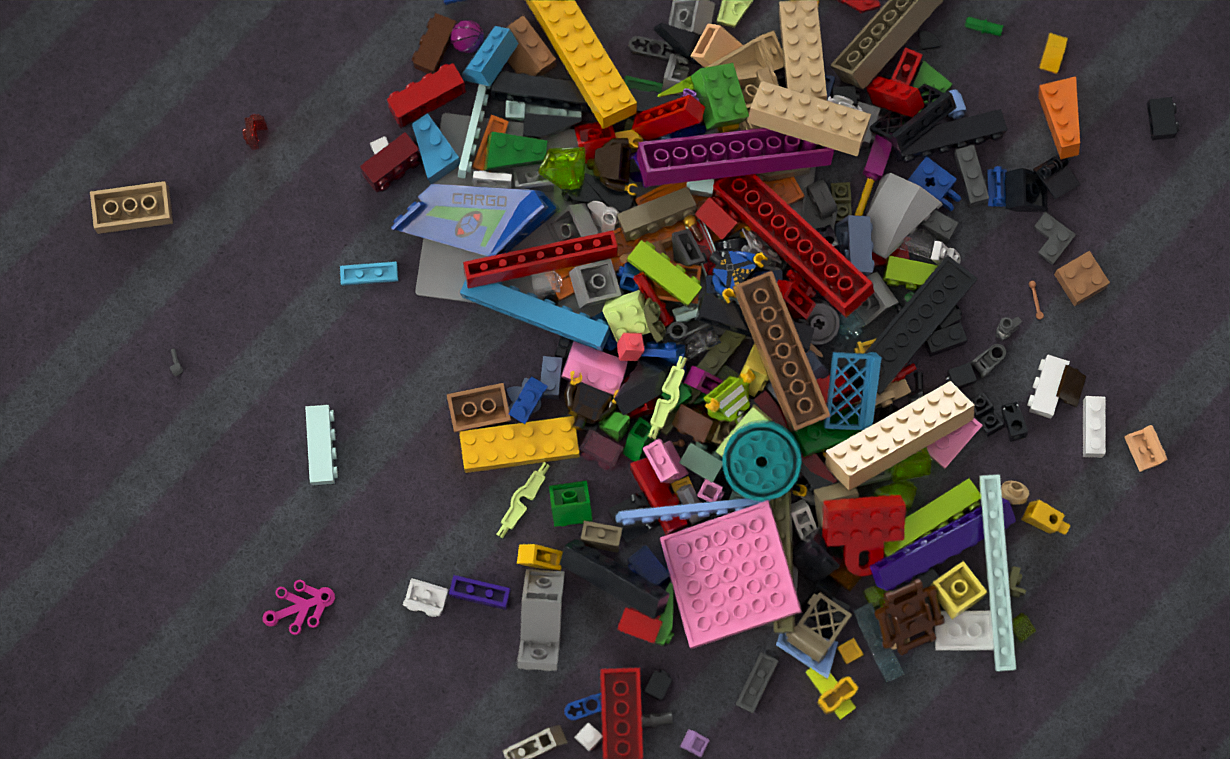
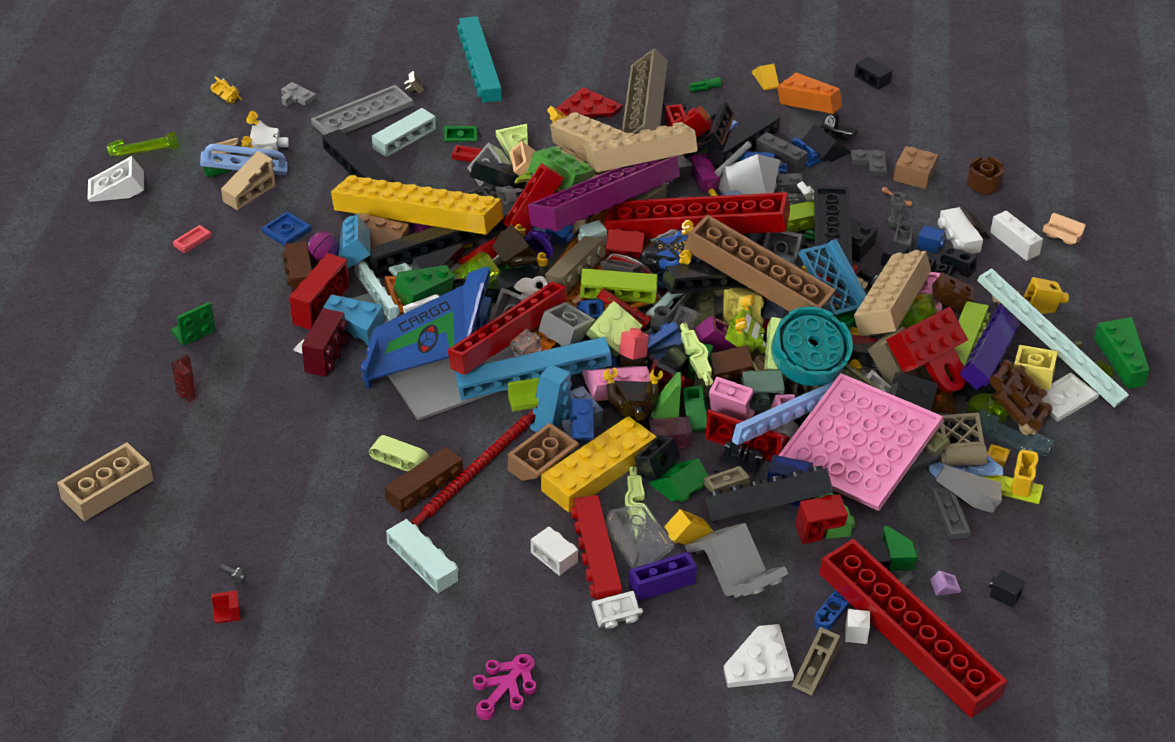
camera: 40 degrees left, 35 degrees down
(148, 397) = (226, 607): none -> red panel
(302, 64) = (194, 324): none -> green bracket
(369, 273) = (364, 426): medium azure tile -> none
(373, 326) = (397, 453): none -> yellowish green beam
(373, 367) = (423, 479): none -> reddish brown brick
(421, 508) = (554, 550): none -> white brick
(454, 528) = (596, 548): none -> red brick
(492, 540) = (638, 535): none -> clear slope
(497, 356) = (474, 468): none -> red hose
(498, 712) = (760, 659): none -> white plate
(519, 330) = (523, 394): none -> lime panel
(522, 361) = (553, 398): none -> dark azure wedge
(567, 472) = (657, 457): none -> black brick
(652, 314) = (631, 306): olive slope -> none
(681, 691) = (900, 550): none -> green slope
(691, 222) = (606, 254): piece -> none
(790, 678) = (973, 489): none -> light grey slope
(908, 164) = (733, 158): none -> light grey bar
(967, 459) = (952, 292): none -> reddish brown brick
(1012, 379) = (931, 239): none -> blue brick
(1059, 618) = (1123, 351): none -> green wedge
(1142, 325) = (985, 175): none -> reddish brown brick

